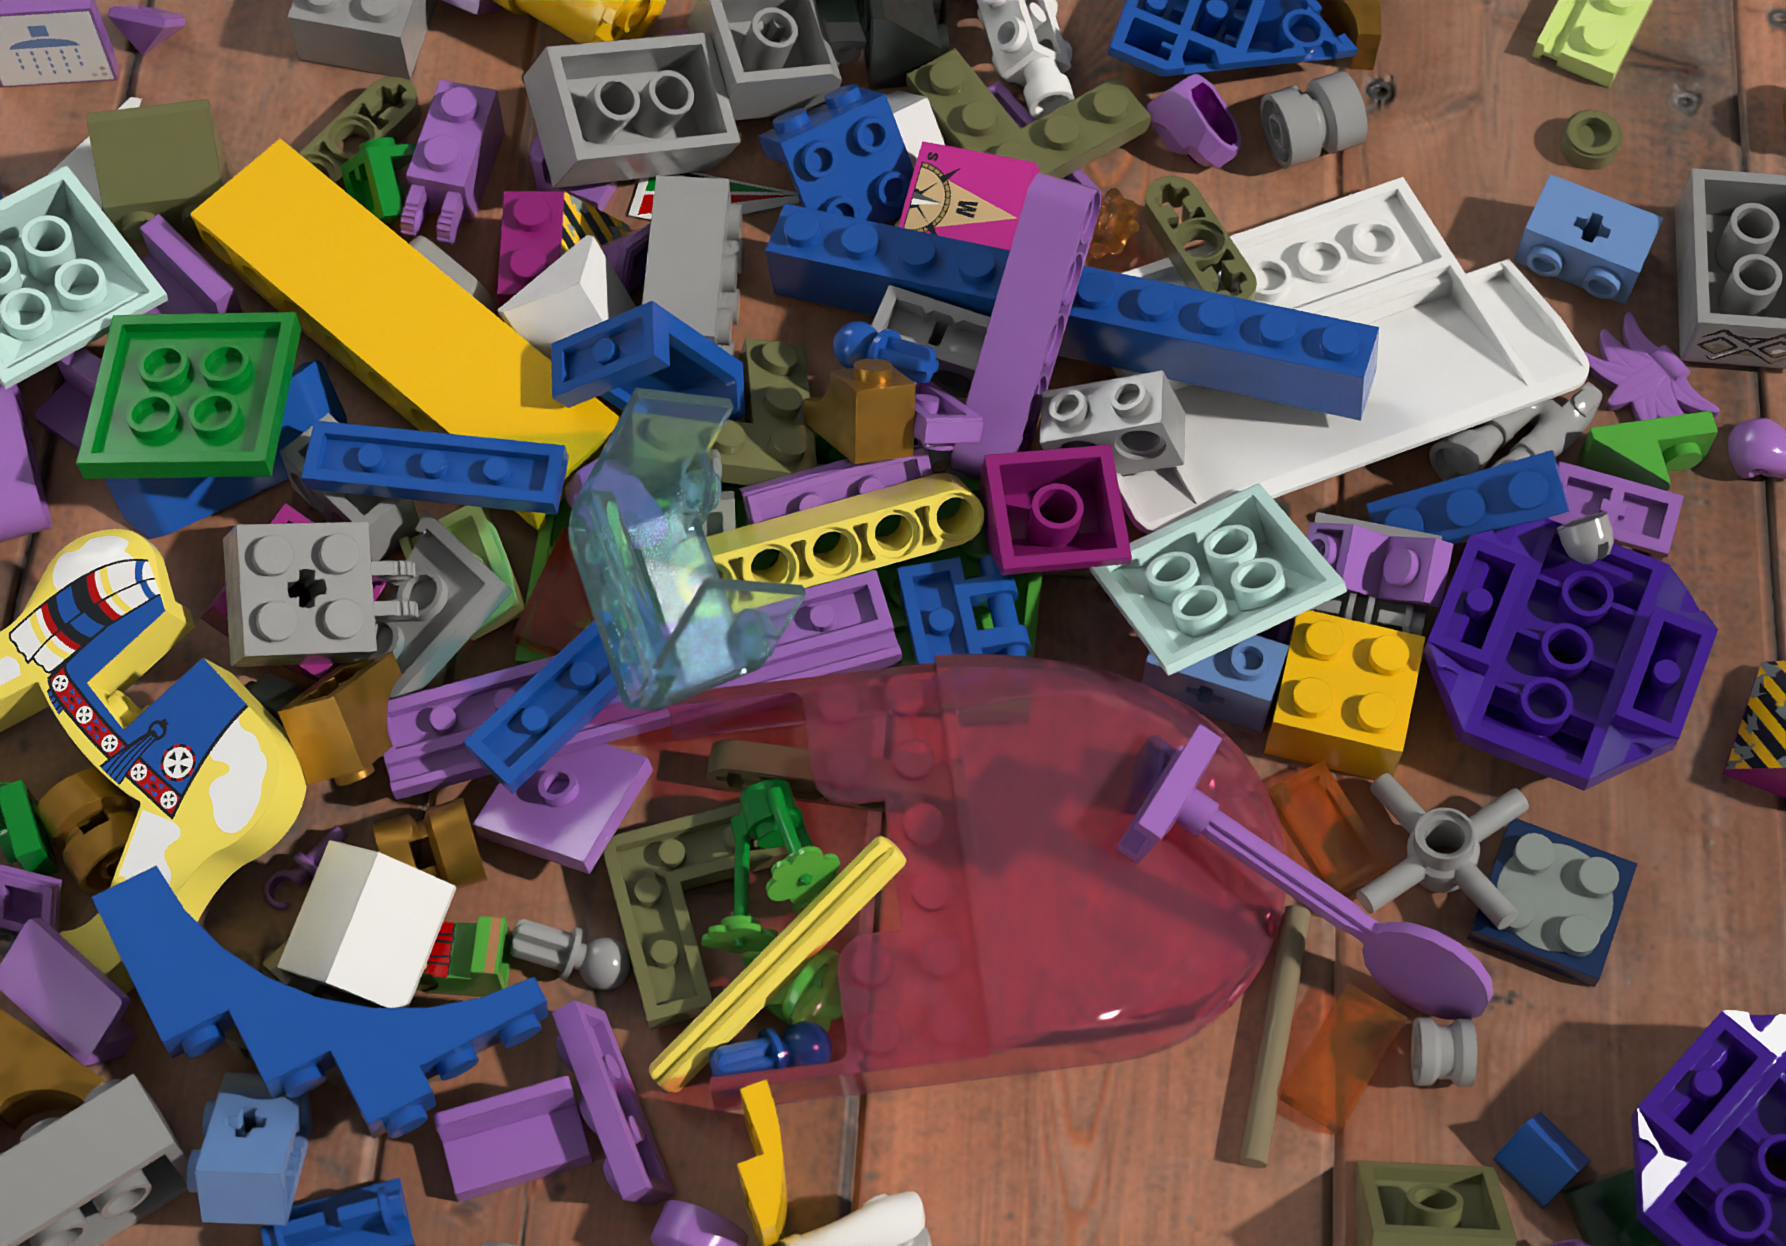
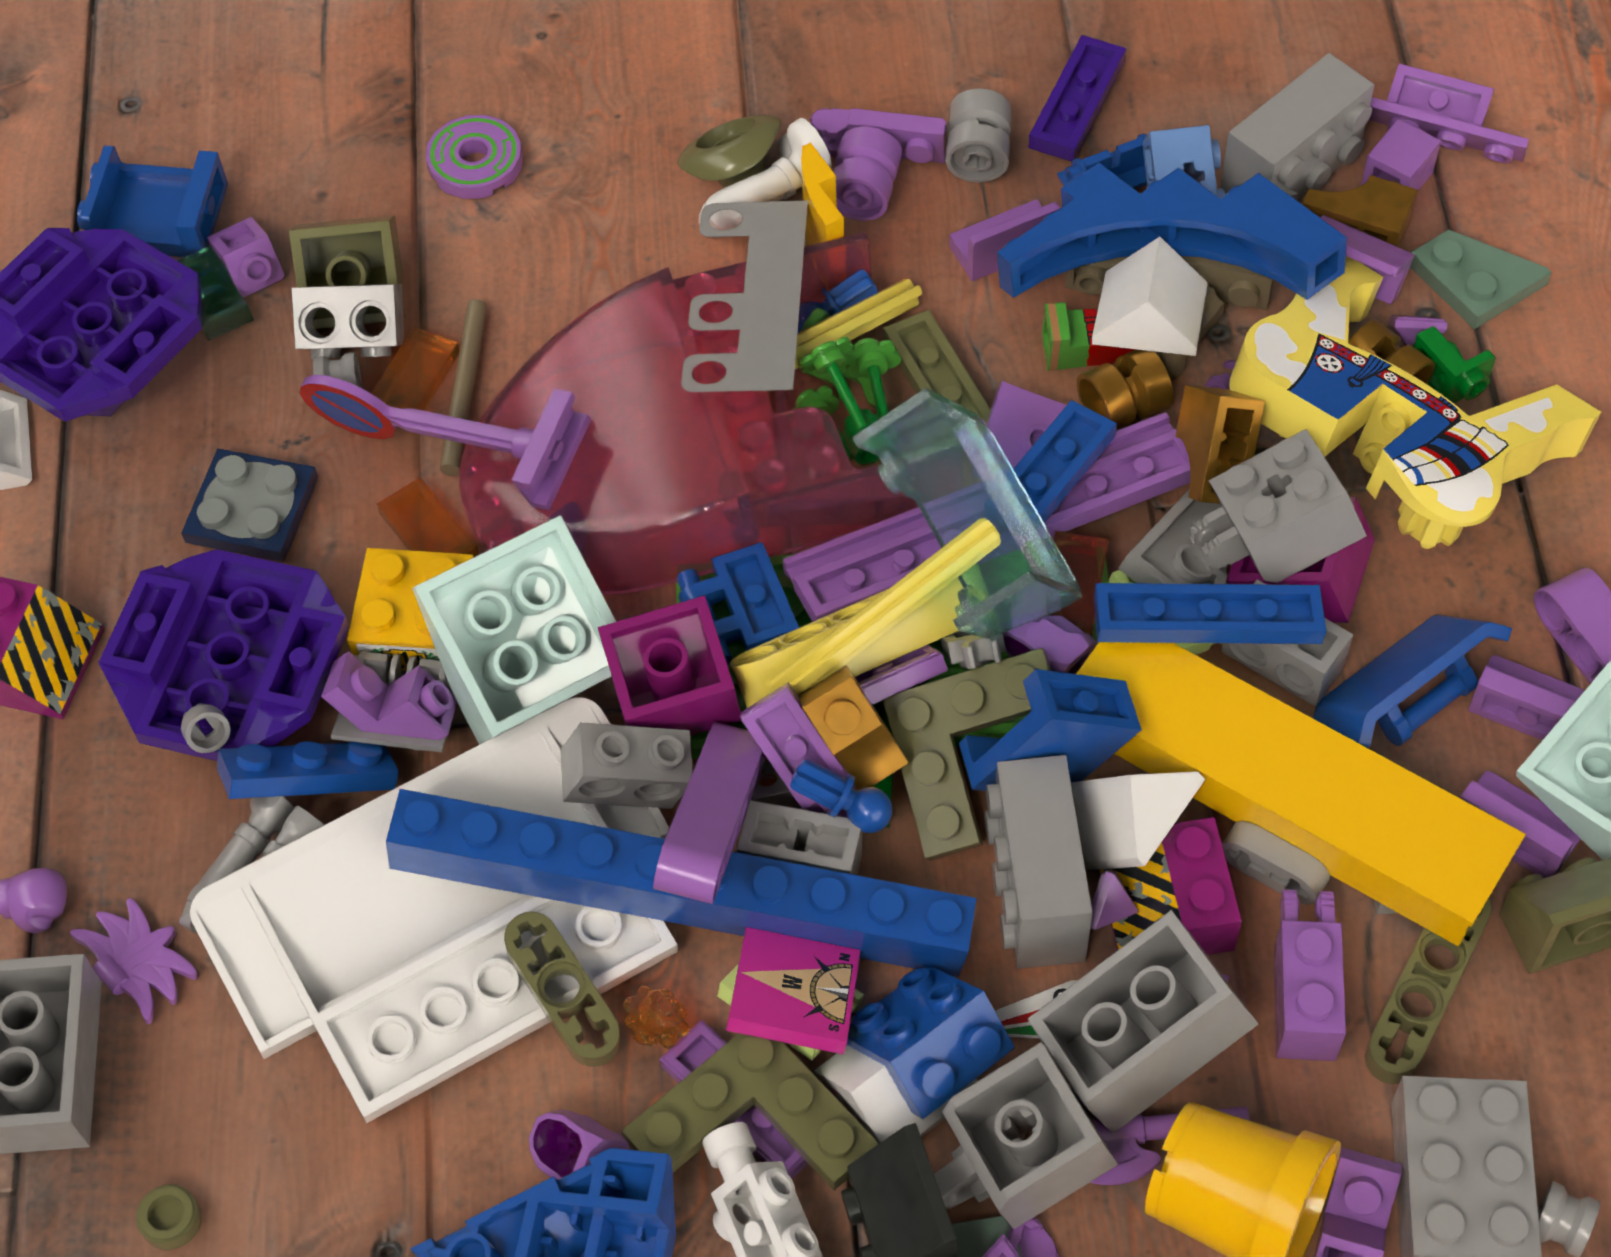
camera: 175 degrees right, 5 degrees down
(190, 396) = (1448, 660): green plate -> none
(372, 180) = (1379, 950): green bracket -> none
(601, 962) = (1003, 353): light grey axle -> none
(611, 1104) = (941, 261): medium lavender plate -> none
(796, 511) = (890, 608): none -> light yellow axle
(864, 952) = (770, 301): none -> light grey piece
(1323, 117) = (435, 1175): light grey wheel -> none
(1430, 1134) = (348, 309): none -> brick
(1443, 871) = (329, 494): light grey bar -> none
(1541, 1159) = (263, 336): blue slope -> none
(1587, 239) = (199, 1100): medium blue brick -> none
(1638, 513) = (176, 804): medium lavender hinge -> none
(1649, 447) = (152, 870): bright green slope -> none

